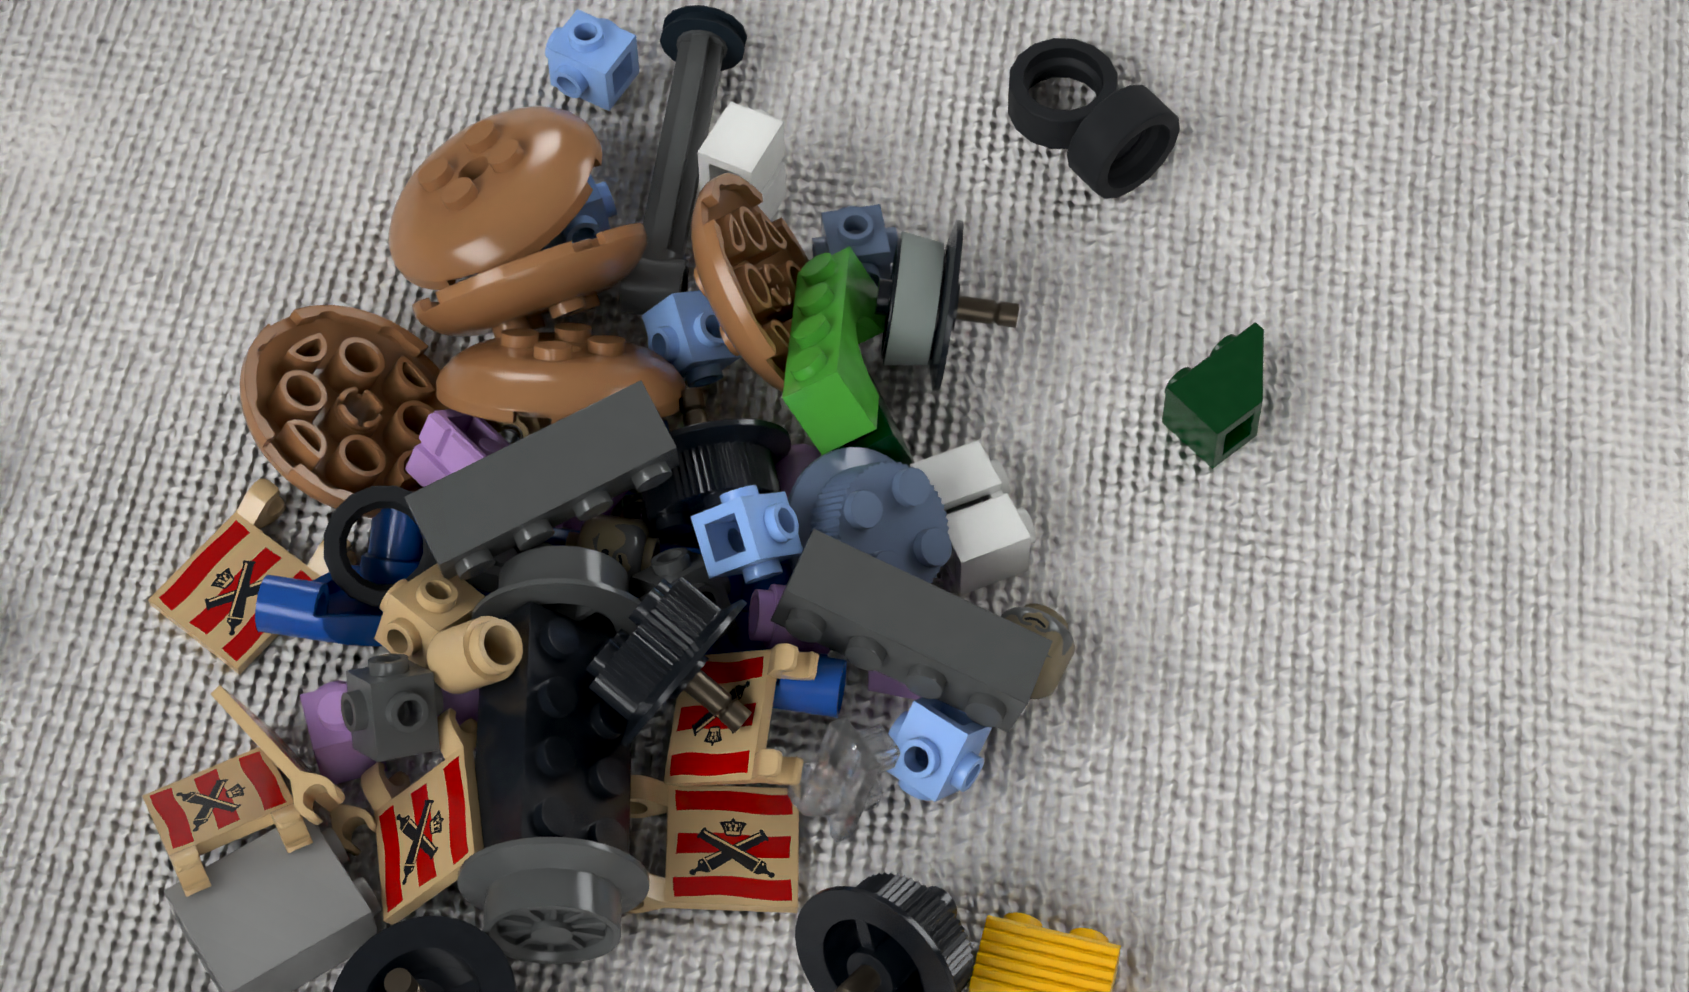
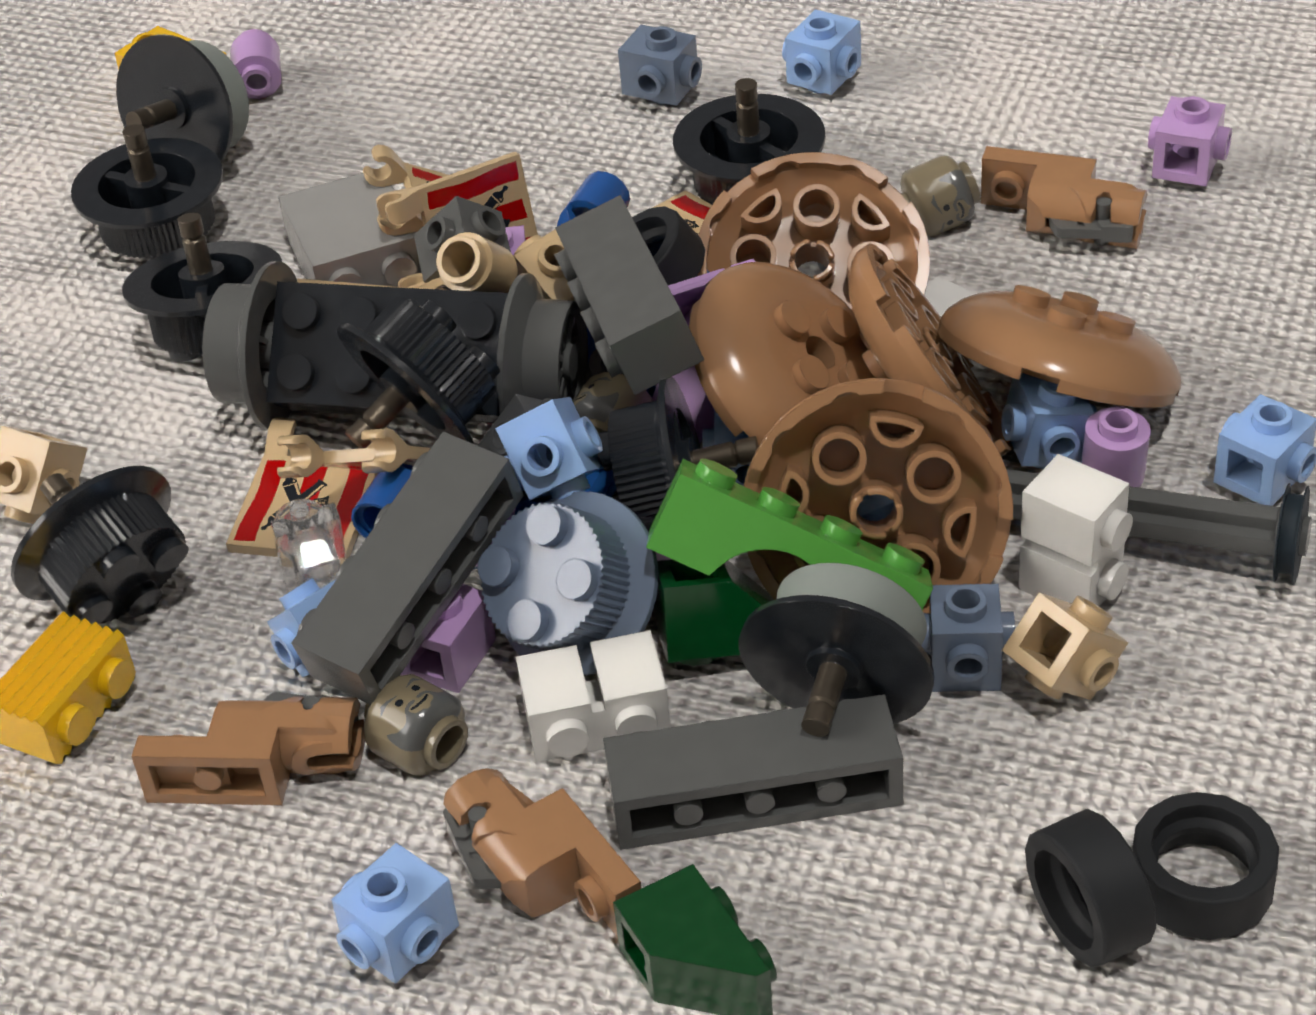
camera: 105 degrees right, 15 degrees down
(97, 131) = (1189, 140): none -> lavender brick
(119, 510) = (740, 132): none -> black piece
(185, 344) = (941, 193): none -> dark tan head
(192, 234) = (1063, 196): none -> medium nougat plate
(619, 160) = (1117, 444): none -> lavender brick
(864, 174) = (1066, 646): none -> tan brick
(1036, 394) = (752, 773): none -> dark grey brick
(1081, 771) = (252, 750): none -> medium nougat plate
(1151, 522) = (532, 850): none -> medium nougat plate
(1253, 601) = (394, 913): none -> light blue brick

